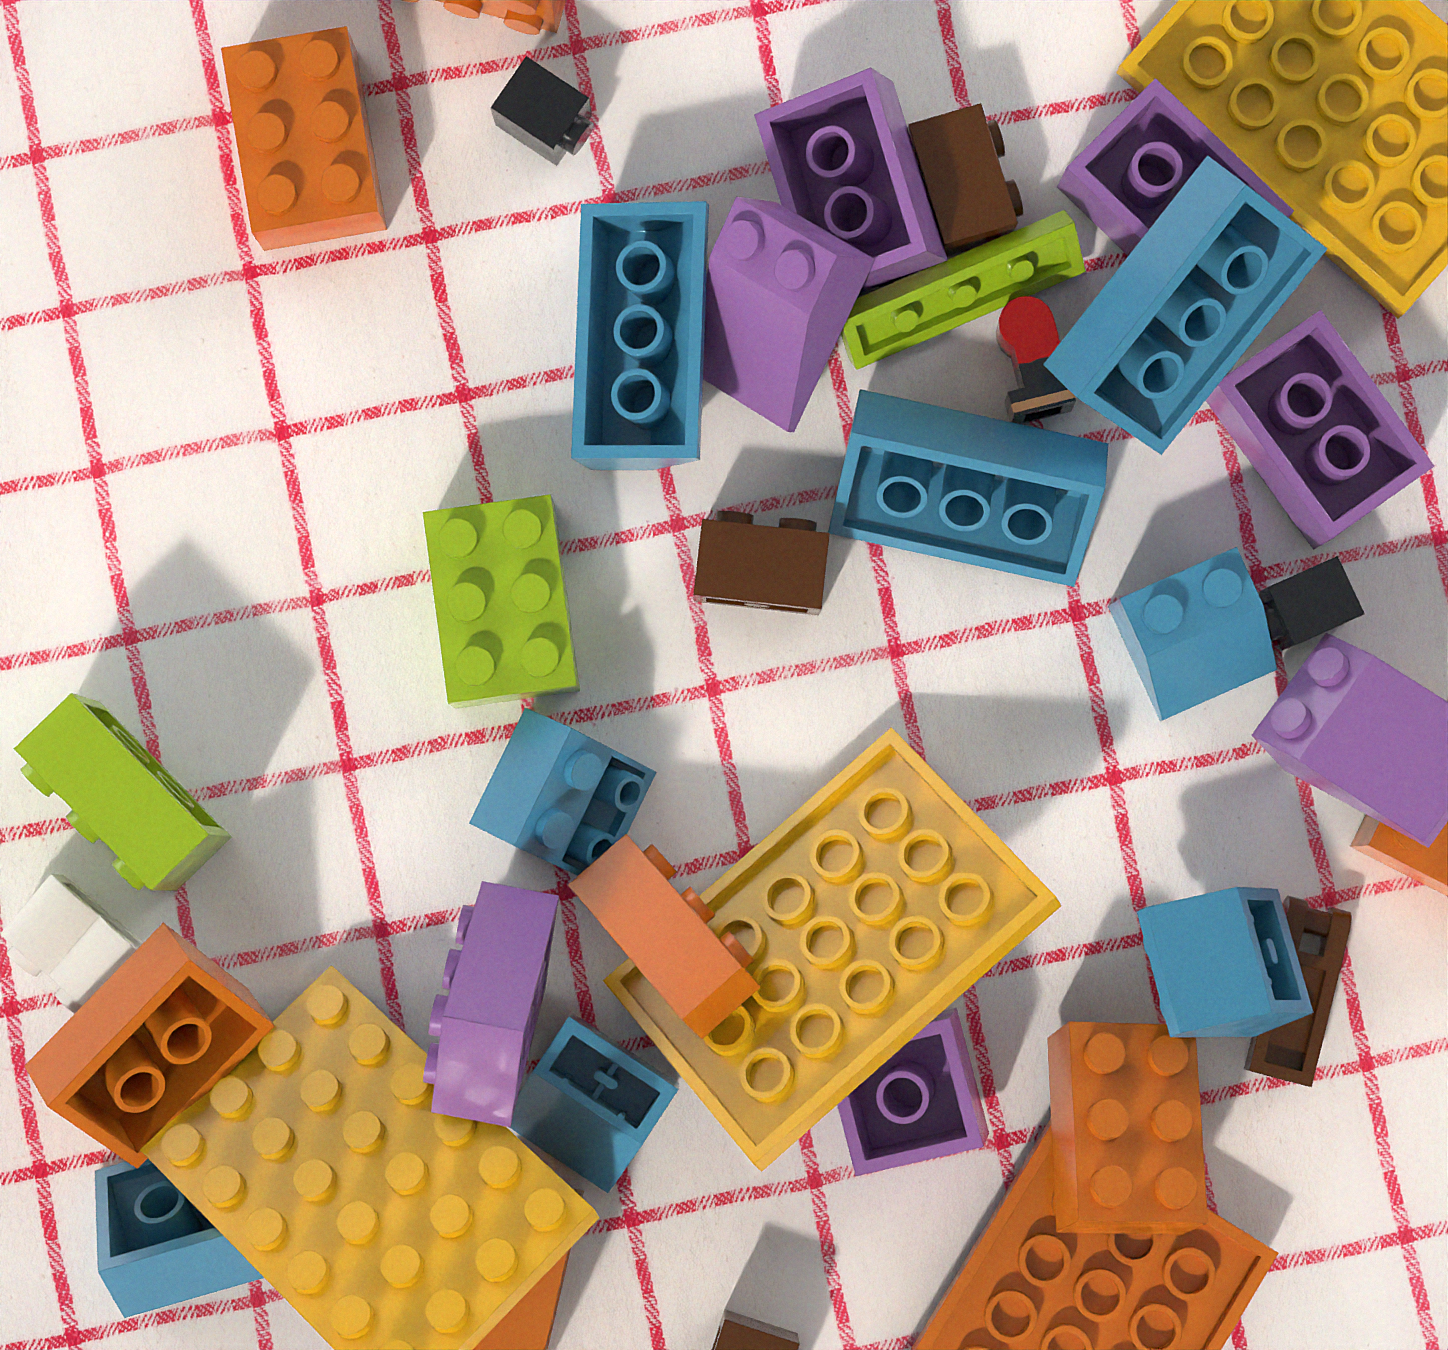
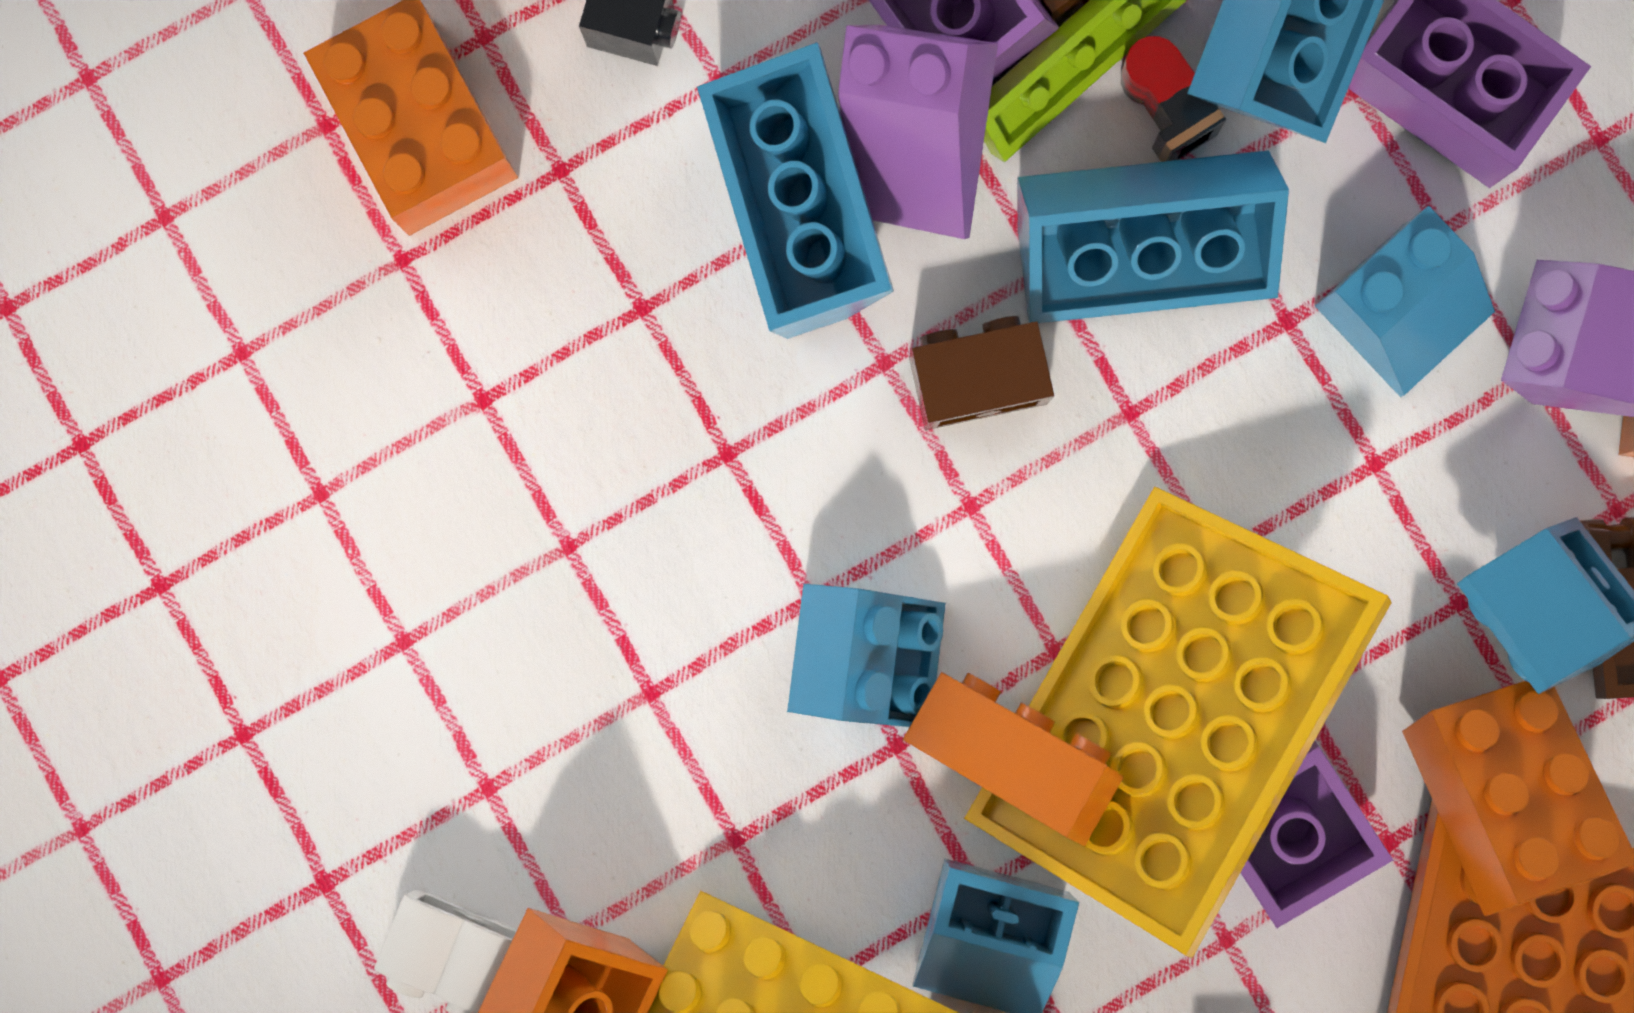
camera: 10 degrees left, 0 degrees up
(120, 795) = (444, 797): lime brick -> none
(491, 1003) = (877, 881): medium lavender brick -> none
(501, 601) = (746, 489): lime brick -> none
(1309, 603) = (1512, 236): black brick -> none

